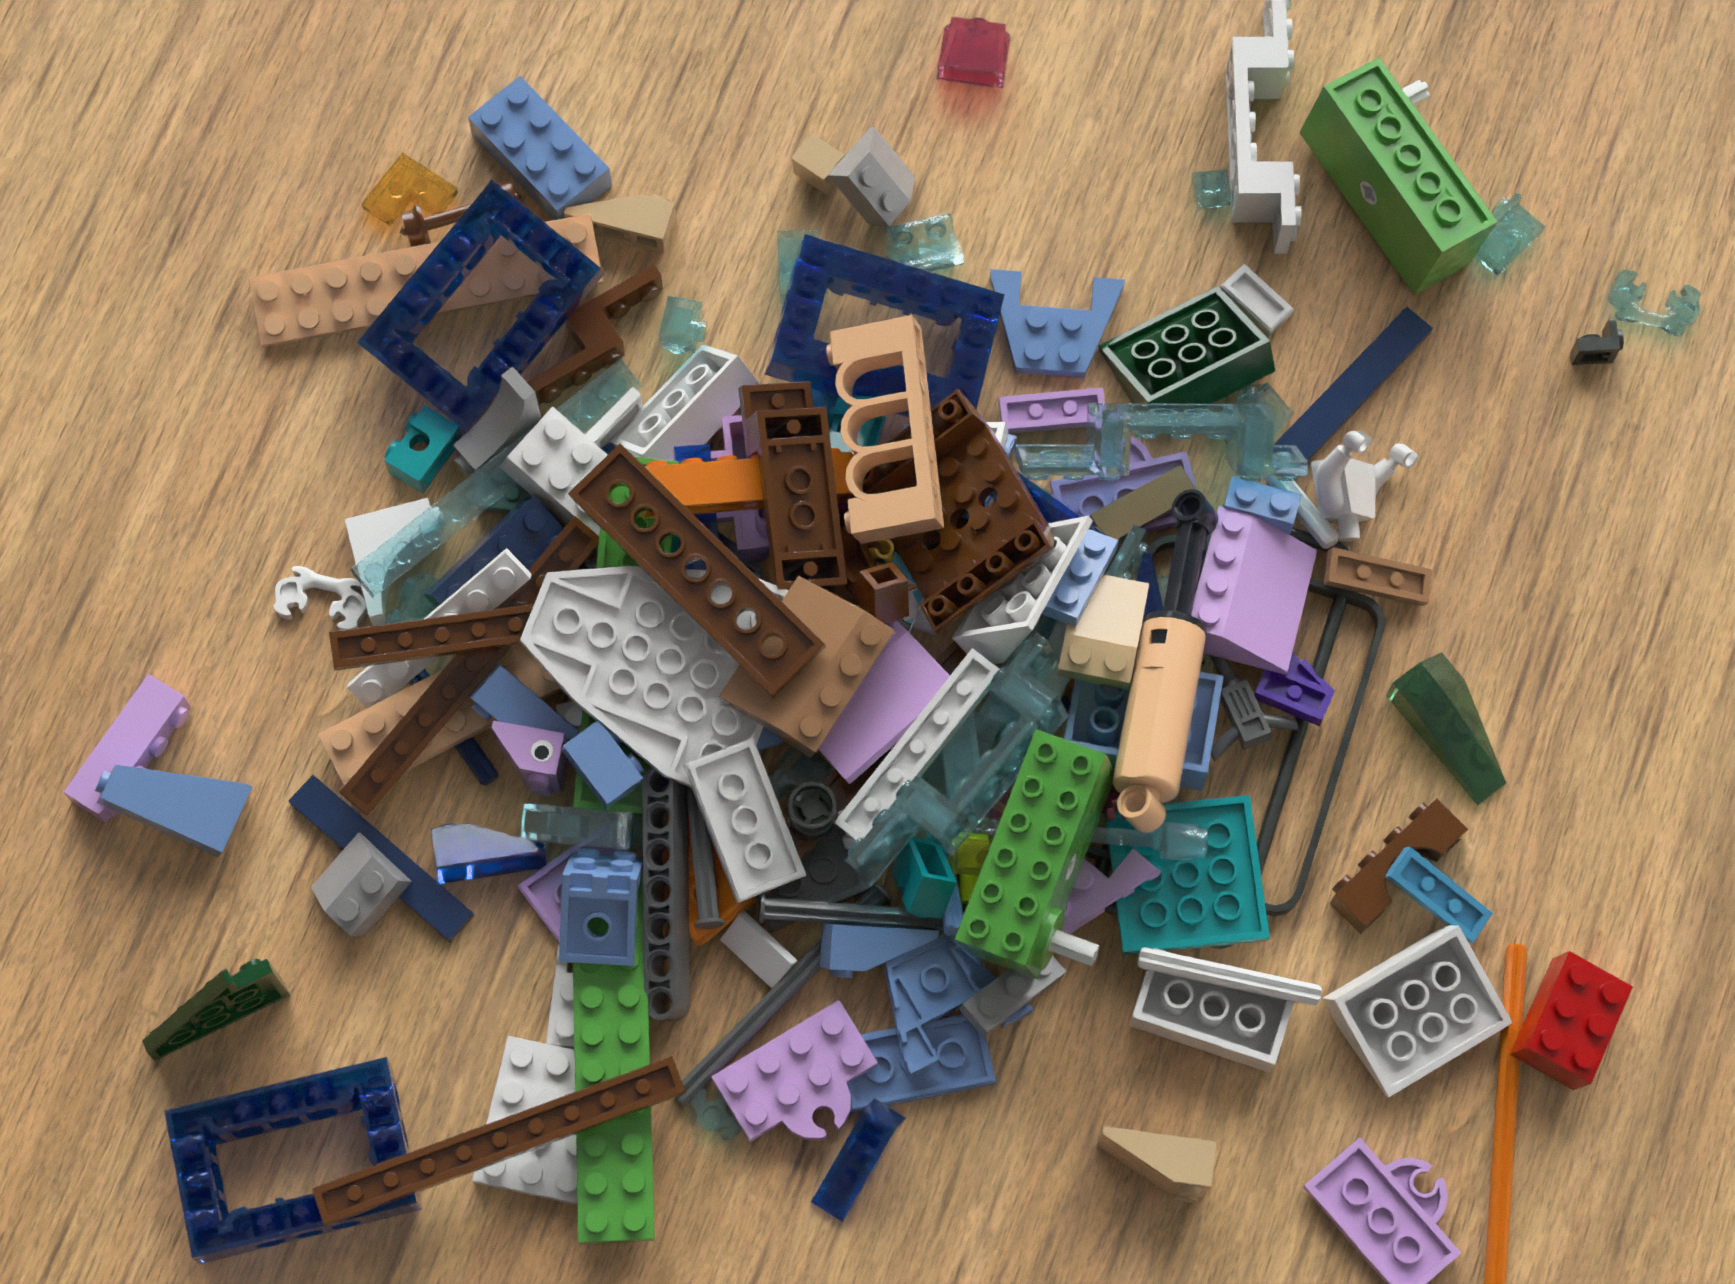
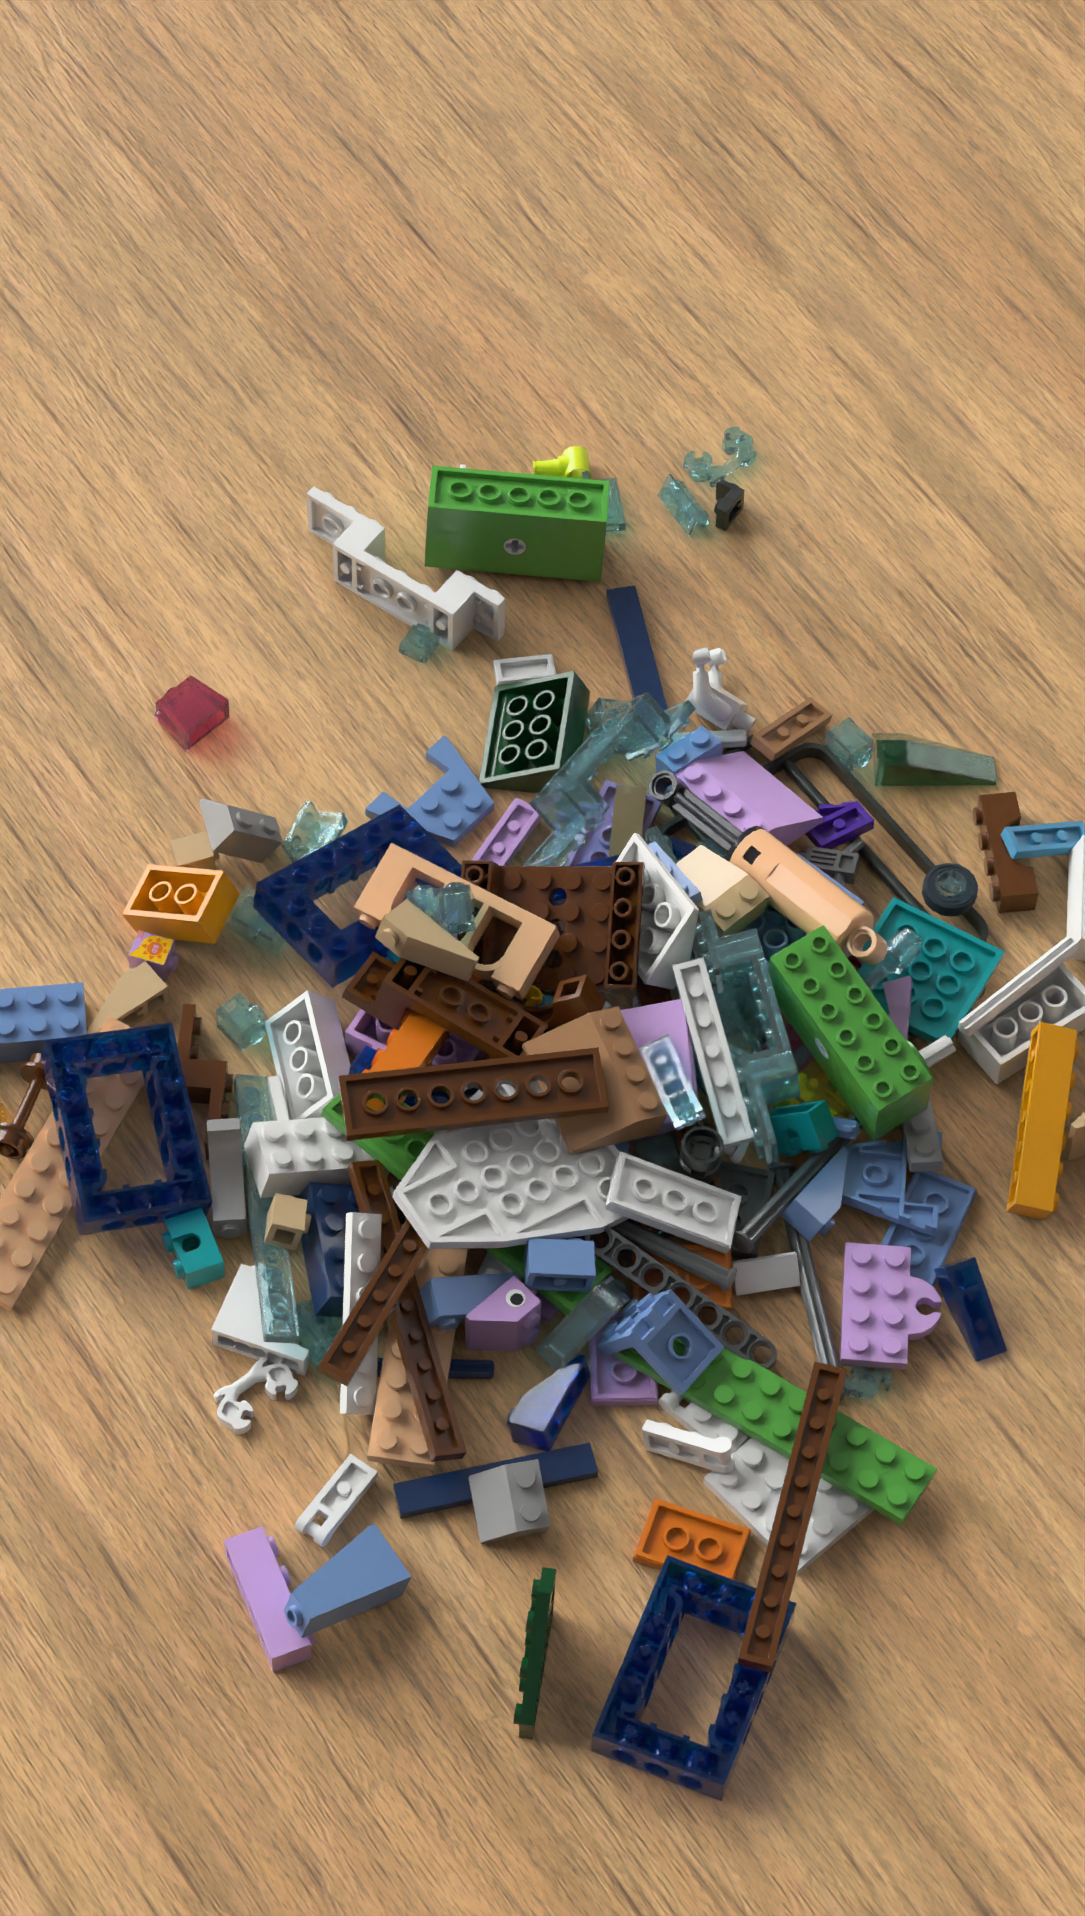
camera: 55 degrees left, 15 degrees down
(264, 738) = (336, 1499): none -> white plate
(436, 1070) = (691, 1538): none -> orange tile
(482, 504) = (286, 1221): none -> tan brick
(523, 1002) = (689, 1446): none -> white plate
(692, 205) = (156, 951): none -> brick
(752, 189) = (181, 903): none -> light orange brick
(826, 409) = (423, 941): none -> tan slope
(856, 734) = (672, 1082): none -> clear light blue slope
(874, 411) = (448, 906): none -> clear light blue slope
(1101, 1095) = (1042, 1121): none -> light orange brick
(1311, 830) = (961, 887): none -> black wheel
(1401, 641) = (850, 744): none -> clear light blue brick
(1520, 177) = (570, 464): none -> neon yellow pin
(1570, 293) = (680, 504): none -> clear light blue hinge

